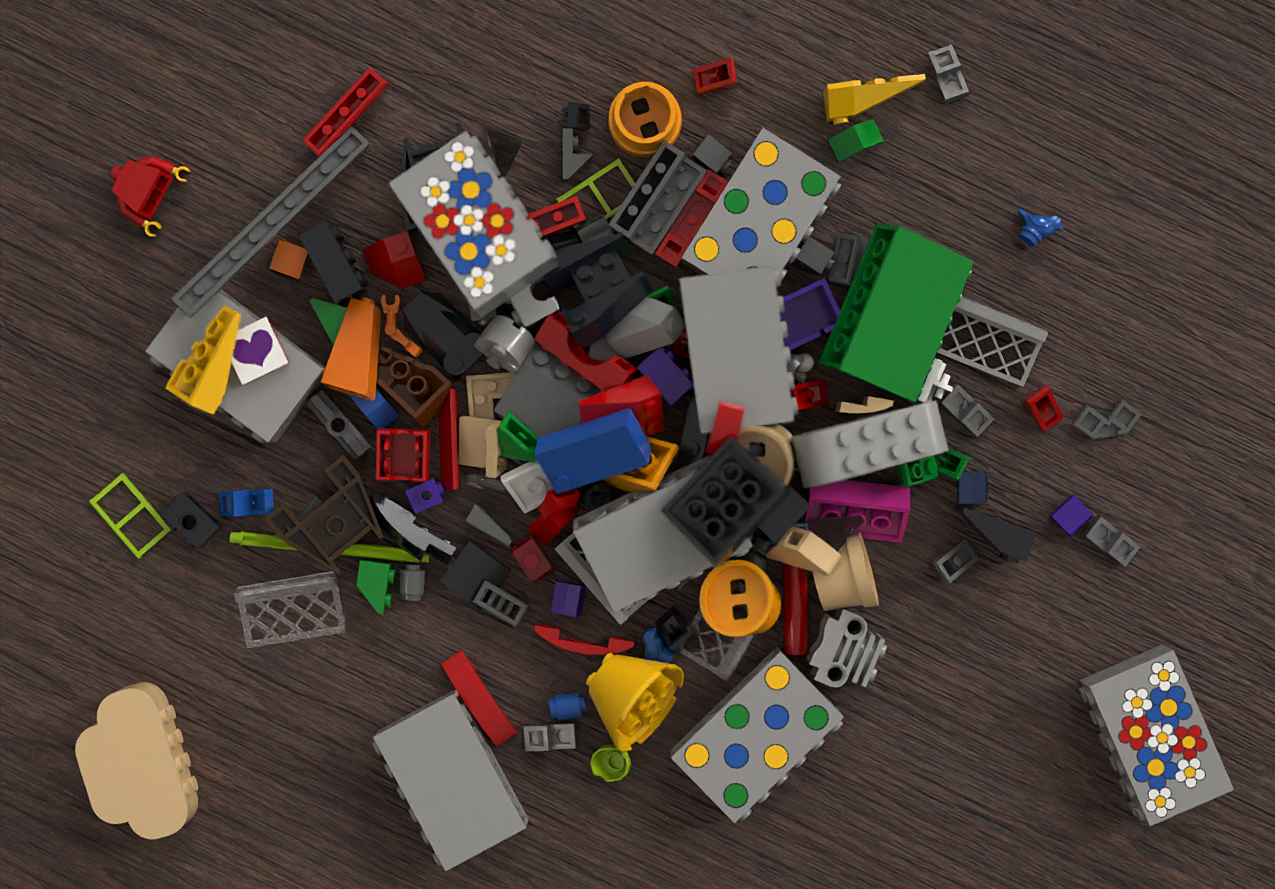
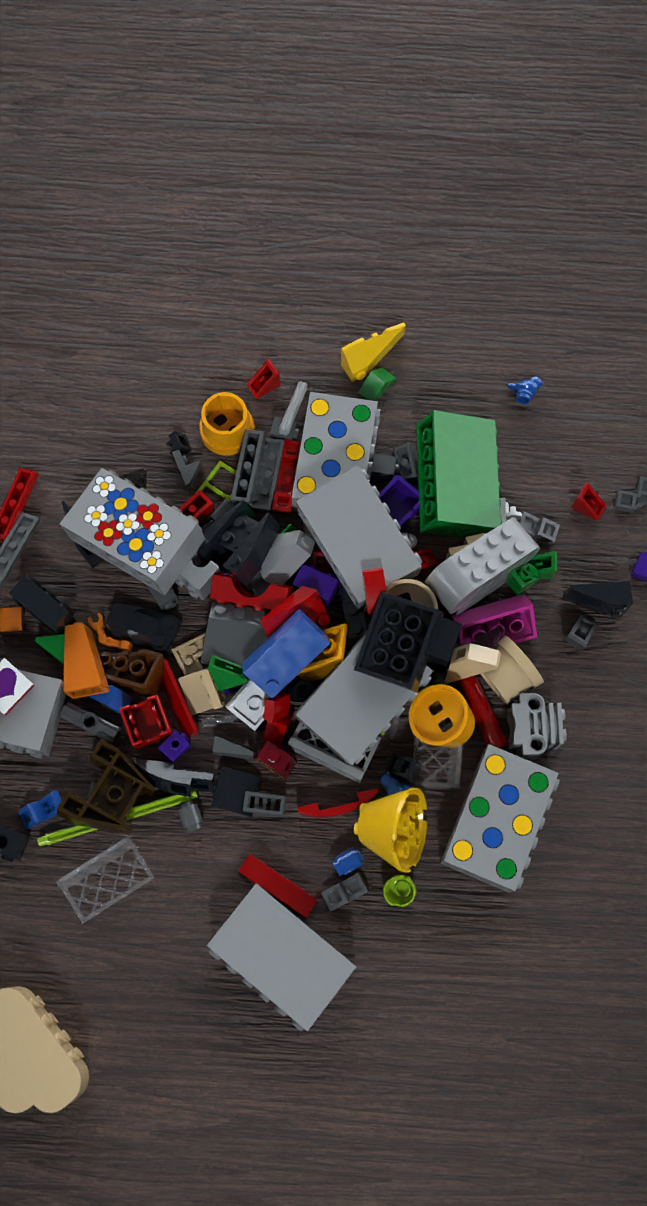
camera: 25 degrees left, 15 degrees down
(374, 583) = (161, 827): green slope -> none
(395, 260) = (88, 589): red slope -> none
(505, 344) = (190, 610): light grey brick -> none
(568, 599) = (313, 779): dark purple piece -> none
(735, 132) = (293, 408): none -> light grey axle
(948, 74) = (418, 321): flat silver slope -> none
(972, 488) = (567, 576): dark blue piece -> none
(1004, 323) = (534, 457): light grey fence -> none

